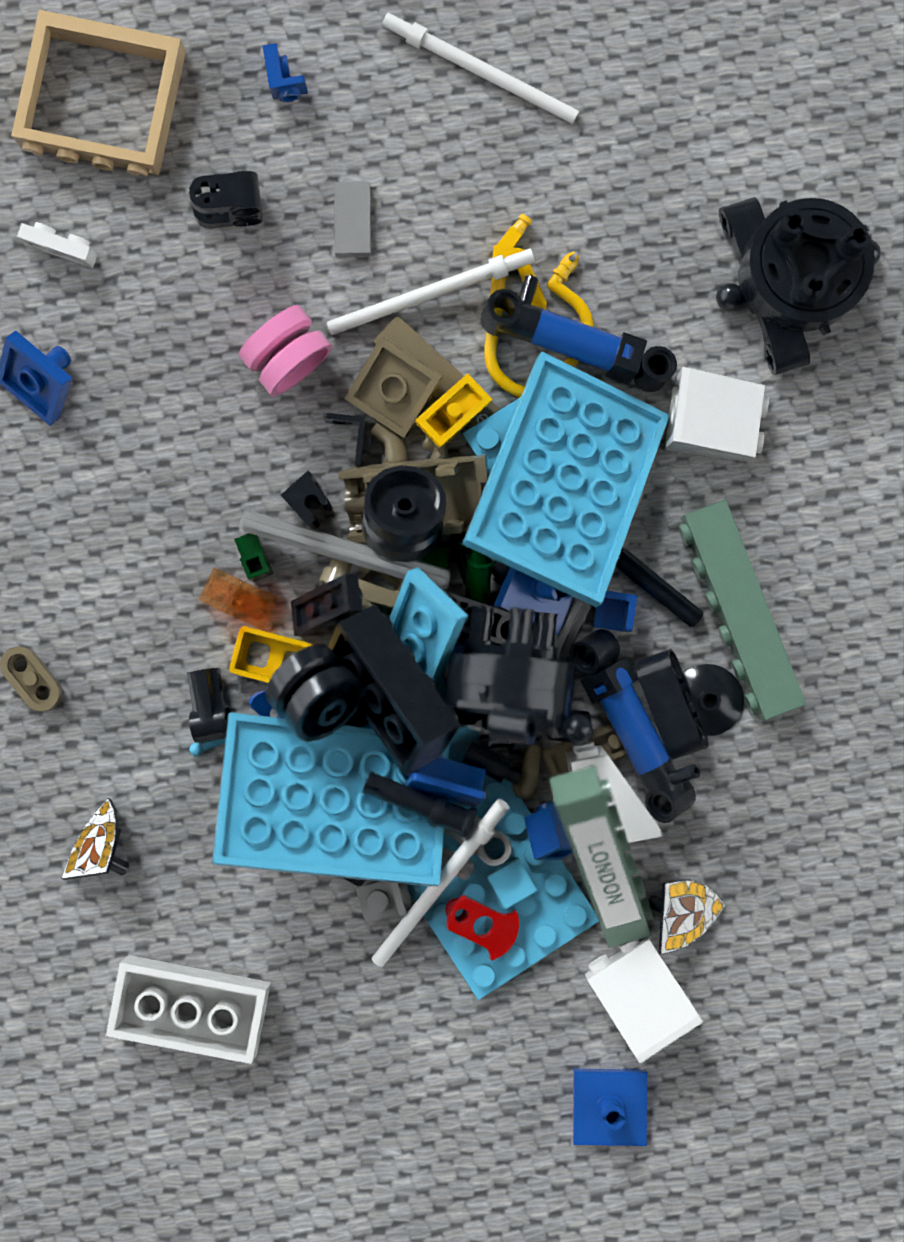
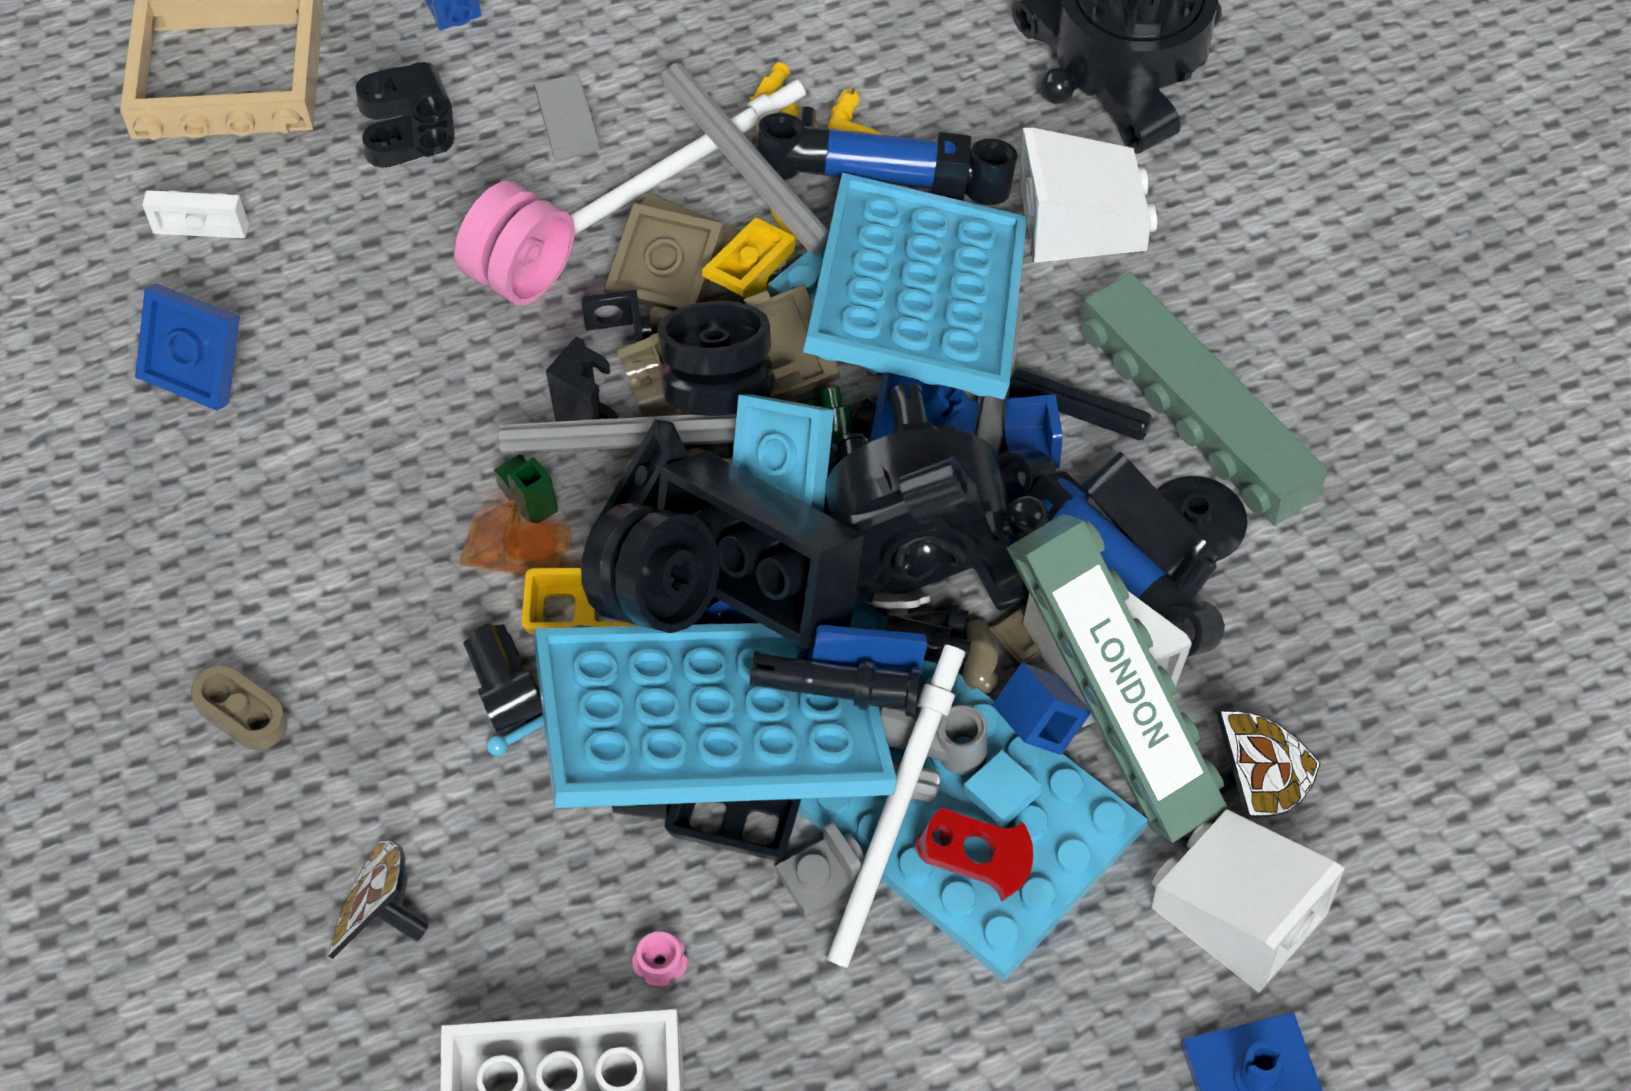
camera: 20 degrees left, 30 degrees down
(266, 940) = (657, 945): none -> bright pink plate
(472, 316) = (746, 158): none -> light grey axle

